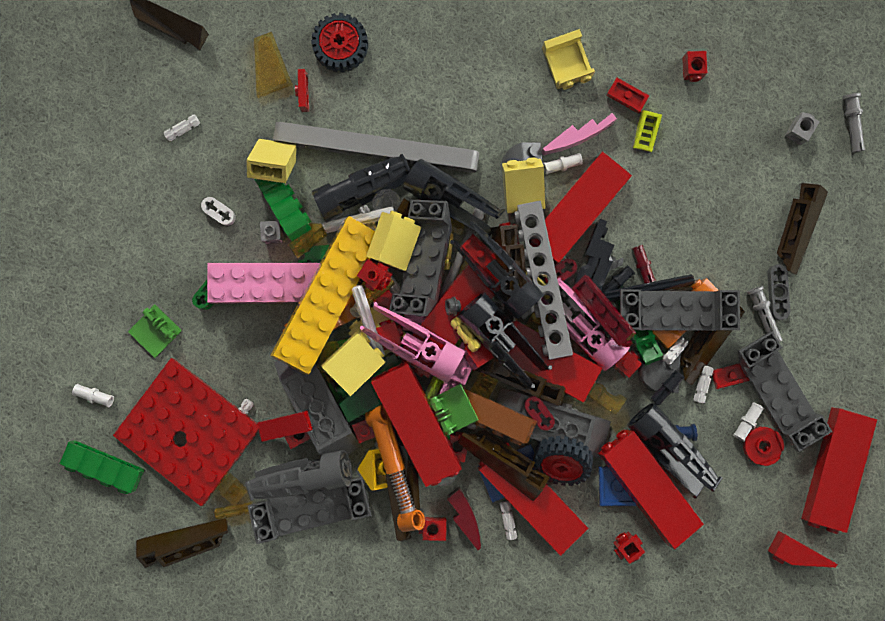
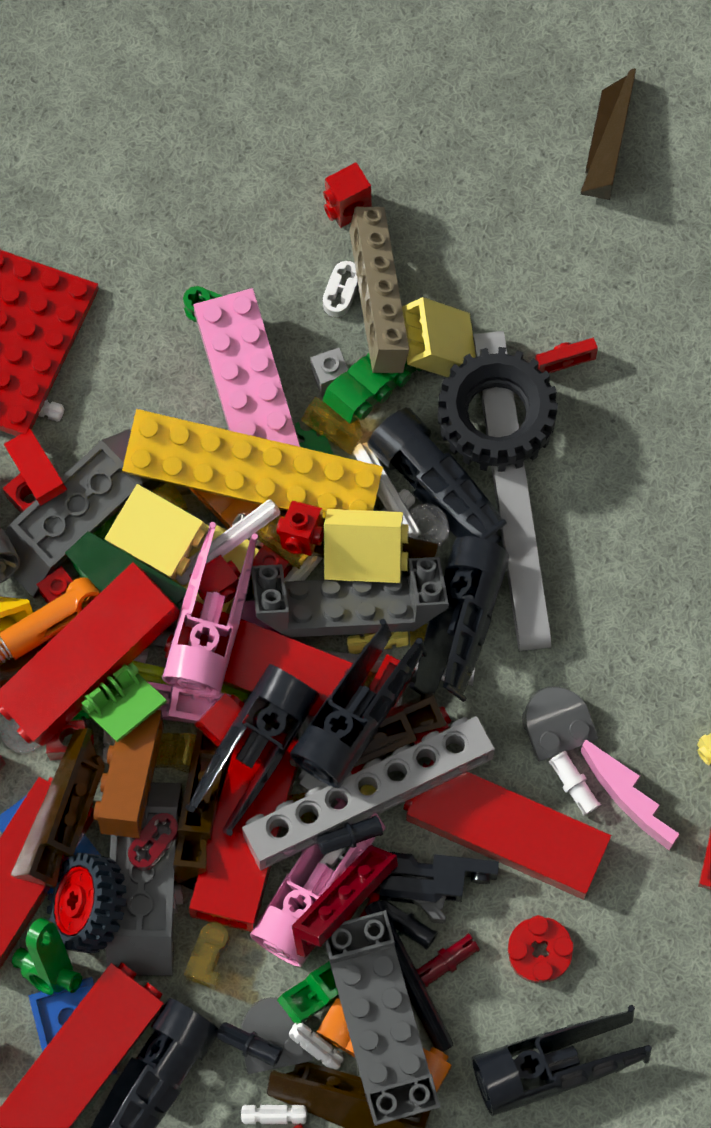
camera: 75 degrees right, 15 degrees down
(93, 395) = (13, 192): white pin -> none
(154, 330) = (133, 250): bright green hinge -> none
(159, 189) = (345, 192): none -> red brick
(181, 128) = (454, 202): white axle -> none
(229, 187) = (379, 290): none -> dark tan brick
(269, 66) = (589, 300): clear yellow wing -> none
(316, 116) = (503, 372): none -> black tyre
(353, 45) = (650, 408): wheel -> none
(452, 306) = (285, 657): dark grey plate -> none
(465, 334) = (241, 693): light yellow axle -> none
(523, 183) = (518, 722): light yellow brick -> none
(560, 266) = (405, 826): dark red beam -> none
(568, 298) = (349, 835): none -> black axle
(590, 492) = (46, 961): none -> green piece
(628, 364) = (273, 972): red brick -> none
(651, 115) = (701, 906): neon yellow slope -> none
(655, 201) = (540, 930): none -> red plate
(689, 431) = (185, 1105): dark blue bush -> none
(722, 252) = (504, 1078): none -> black piece

